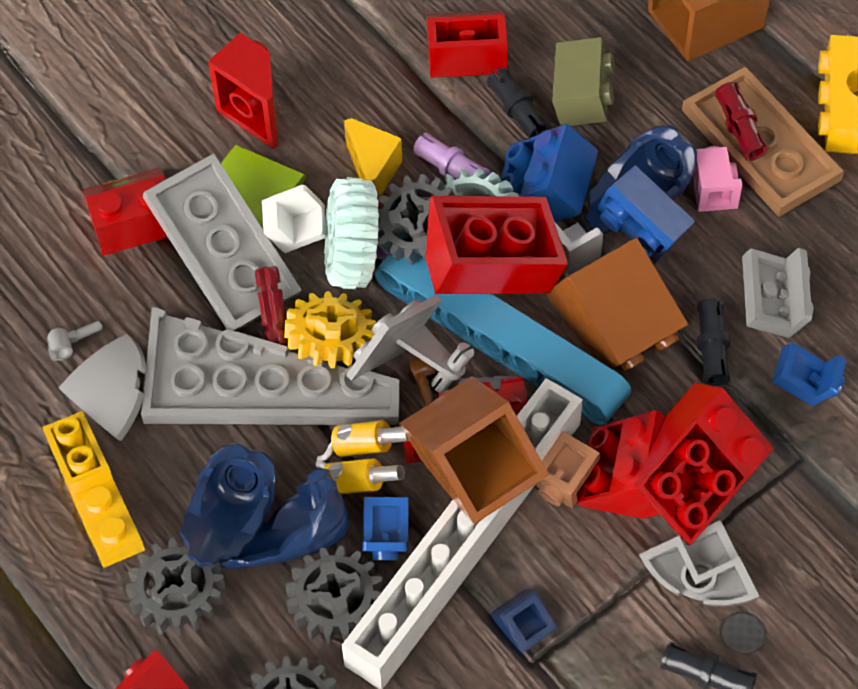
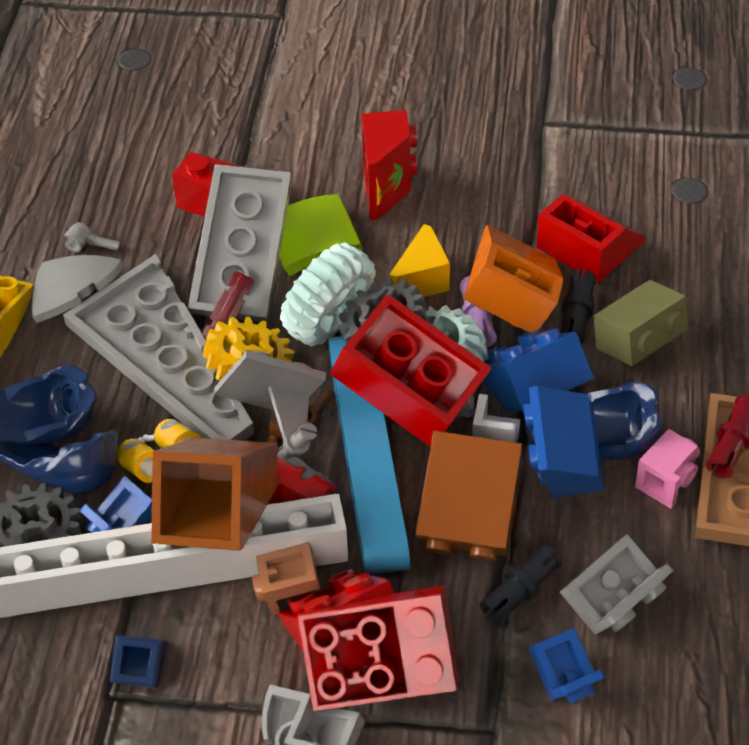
camera: 45 degrees right, 10 degrees down
(294, 218) = (298, 254): white panel -> none
(464, 114) = (513, 281): none -> orange slope

